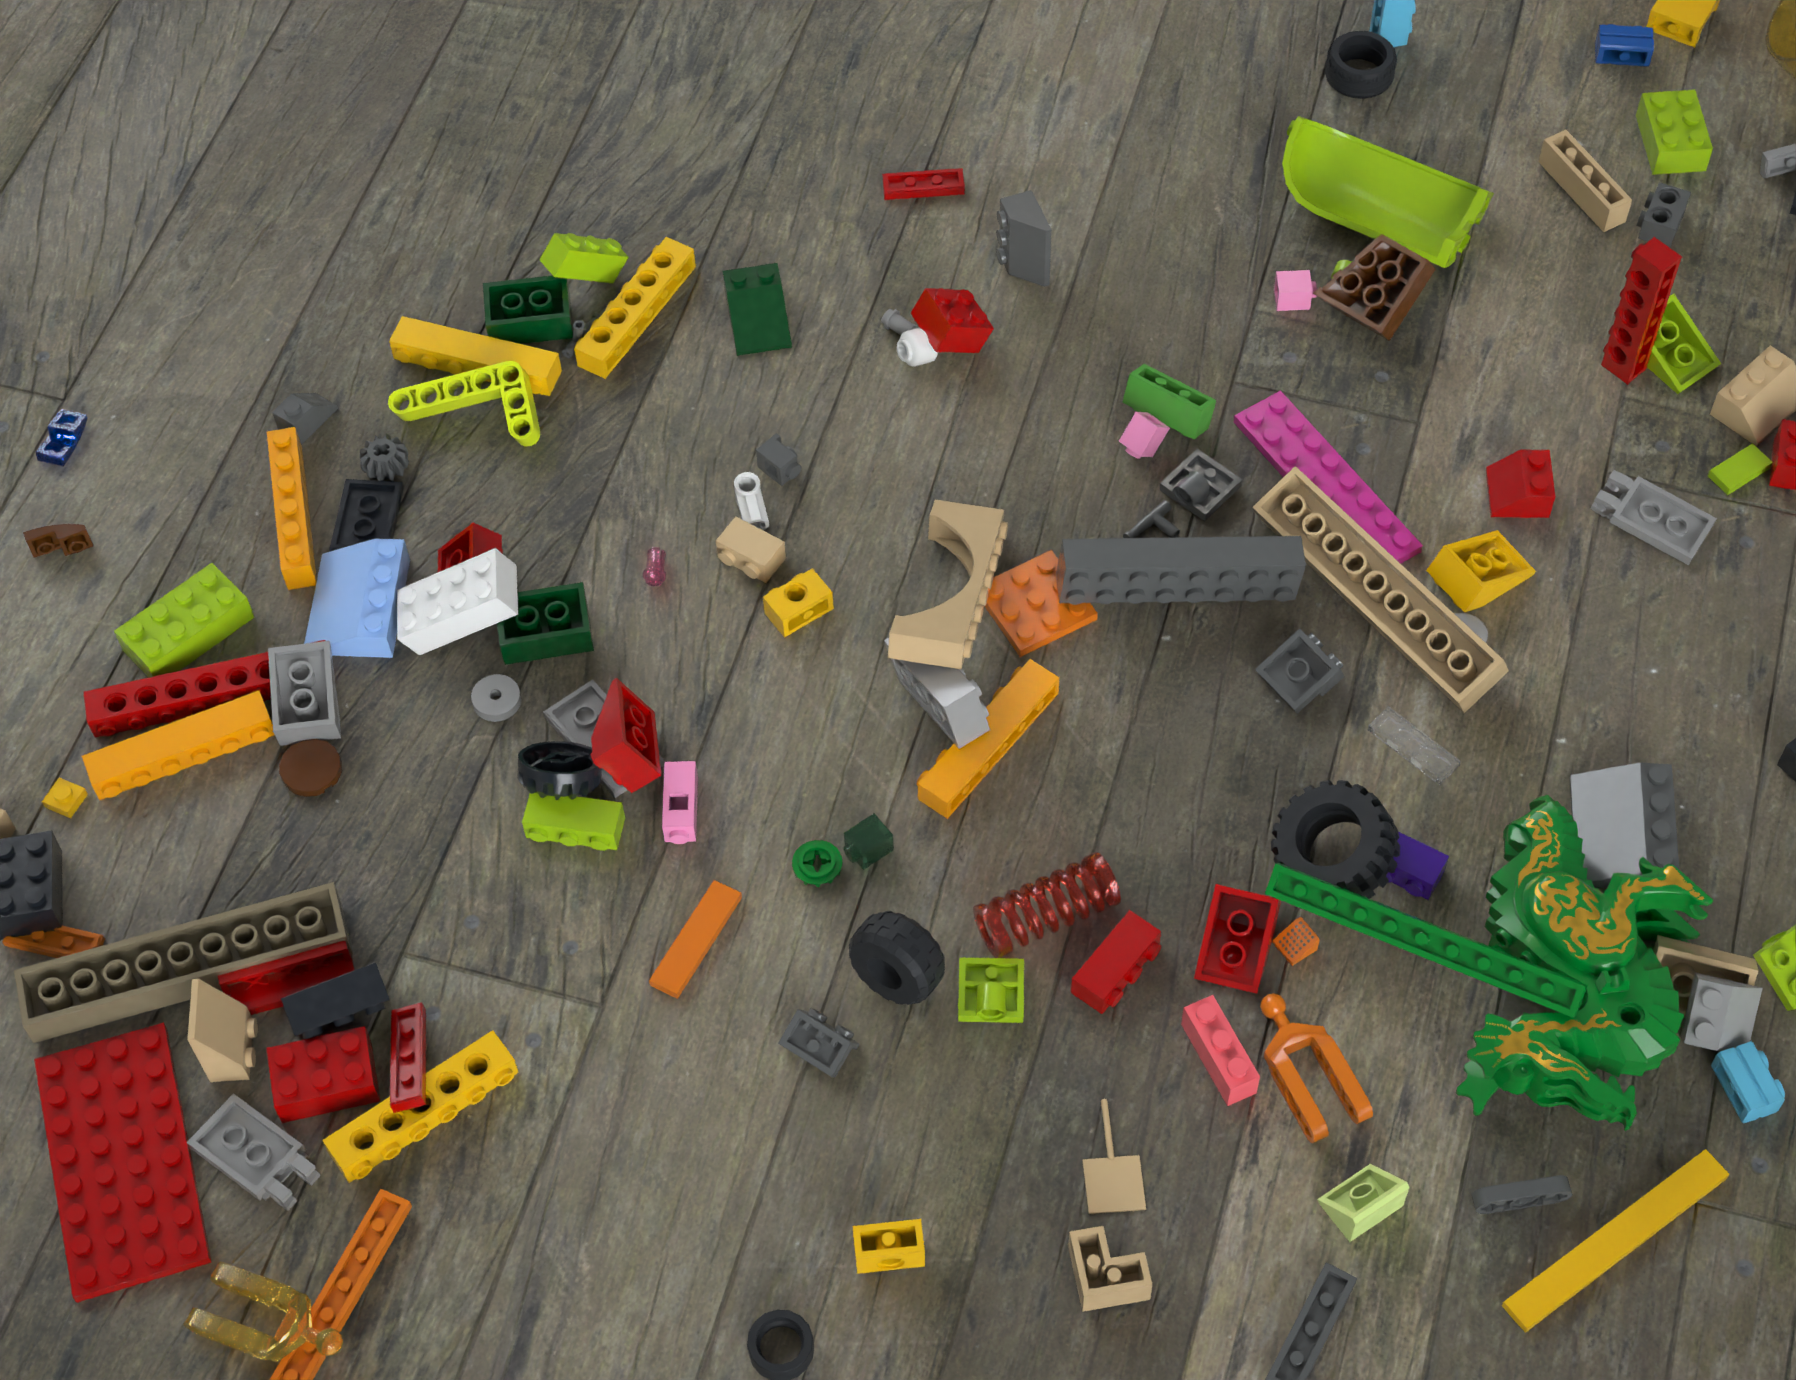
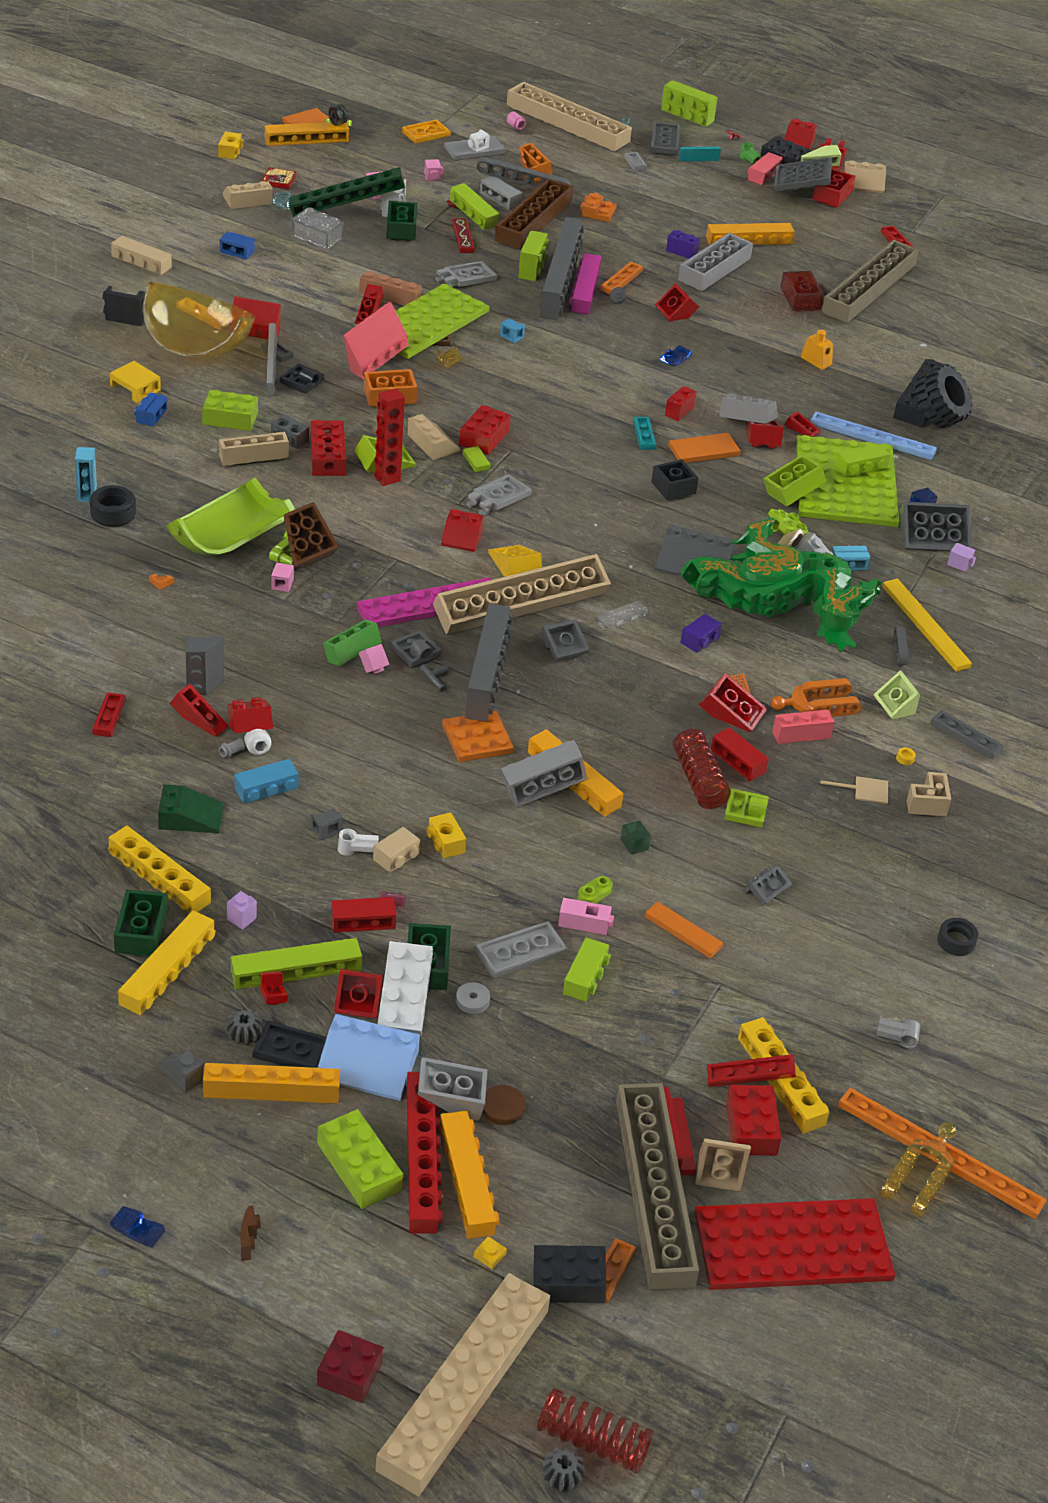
camera: 85 degrees left, 15 degrees down
(253, 1151) = (800, 1167): light grey tile -> none
(336, 1001) = (706, 1098): black brick -> none
(451, 474) = (272, 988): none -> red bracket
(472, 395) = (220, 940): neon yellow beam -> none
(506, 488) = (297, 962): none -> lime brick
(544, 1273) = (906, 1032): none -> light grey piece
(558, 769) = (553, 960): black gear -> none
(579, 331) = (172, 904): dark grey piece -> none
(583, 406) = (241, 910): none -> lavender brick
(584, 258) = (116, 876): lime brick -> none
(614, 539) = (363, 914): none -> red brick
(626, 739) = (550, 919): red slope -> none
(745, 808) = (595, 890): none -> lime plate
(804, 859) = (635, 861): green gear -> none
(841, 376) = (266, 781): none -> dark azure brick
(889, 1246) = (907, 876): yellow brick -> none
(897, 958) = (730, 830): black tyre -> none
(947, 631) = (525, 747): tan arch -> none
(958, 260) = (198, 711): none -> red slope
(1219, 1232) = (905, 756): none -> yellow tile
(1228, 163) = (161, 581): none -> orange tile
(1331, 805) = (697, 626): black tyre -> none
(1427, 940) = (770, 620): green plate -> none
(1606, 266) = (328, 448): none -> red brick

